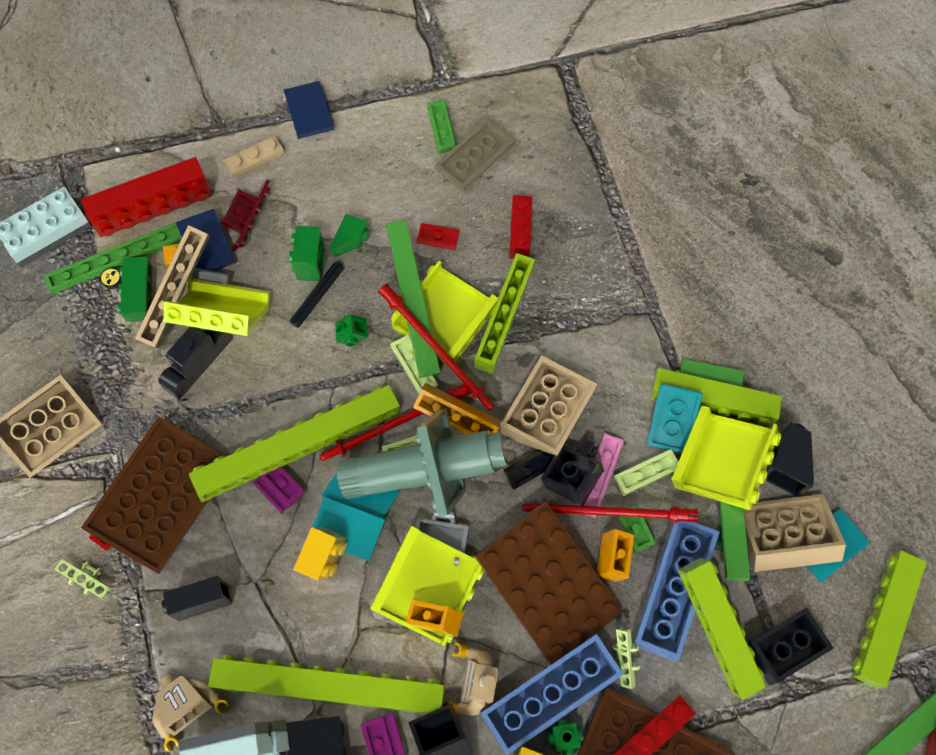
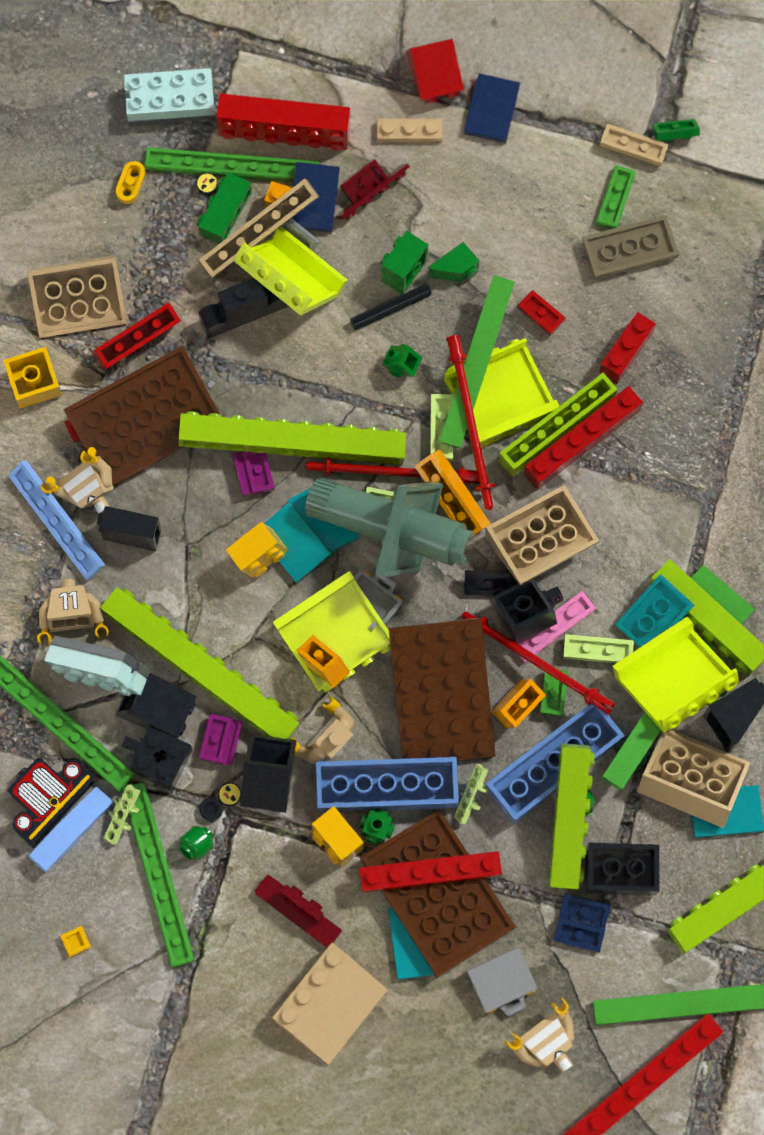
camera: 30 degrees right, 5 degrees up
(38, 515) = (32, 377): none -> yellow brick
(44, 311) = (130, 184): none -> yellow plate
(93, 584) = (48, 465): yellowish green piece -> none
(114, 430) = (136, 336): none -> red brick
(126, 629) = (56, 520): none -> light blue plate
(135, 583) = (85, 484): none -> torso
(248, 101) = (435, 70): none -> red slope
(431, 82) = (633, 145): none -> tan plate
(459, 54) = (676, 129): none -> green plate
(529, 313) = (583, 437): none -> red brick
(783, 713) = (582, 922): none -> dark blue slope

